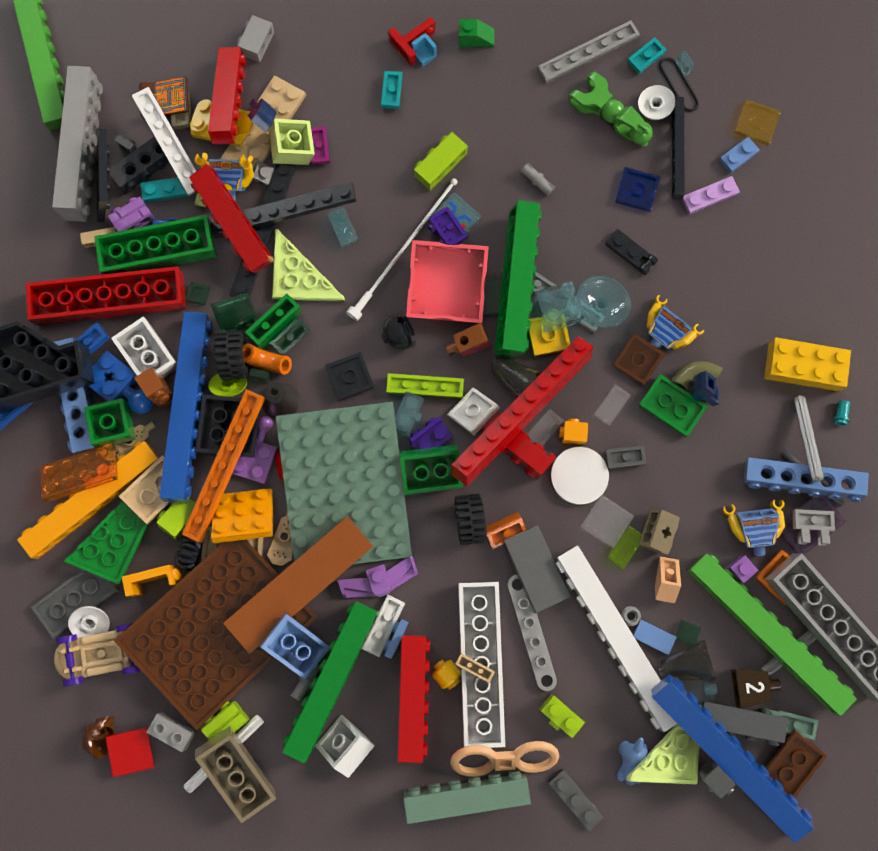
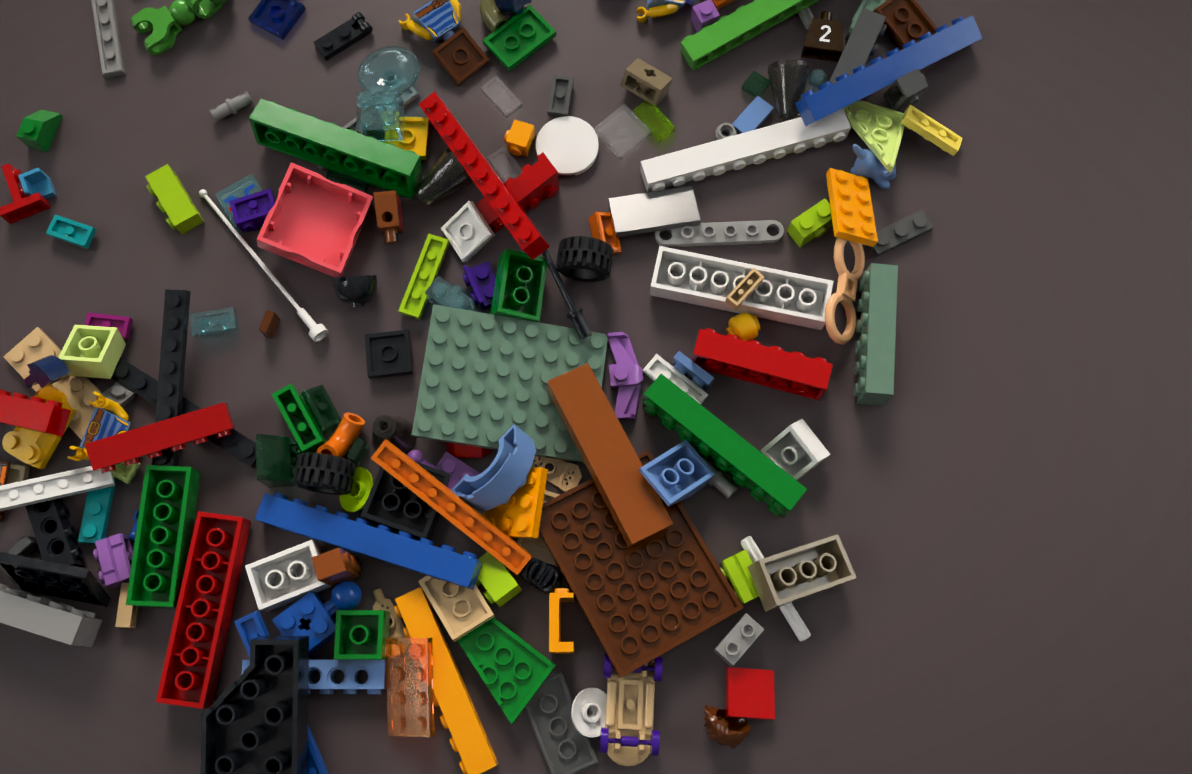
camera: 70 degrees left, 5 degrees down
(198, 293) = (237, 503): clear green tile -> none
(259, 502) = (503, 475): none -> medium blue brick
(298, 276) = (252, 385): yellowish green tile -> none
(352, 272) = (269, 324): none -> reddish brown tile
(416, 525) = (575, 314): none -> black piece
(582, 749) = (851, 207): none -> light orange plate
(667, 580) = (698, 87): light nougat slope -> none
(684, 810) = (931, 130): none -> light yellow plate

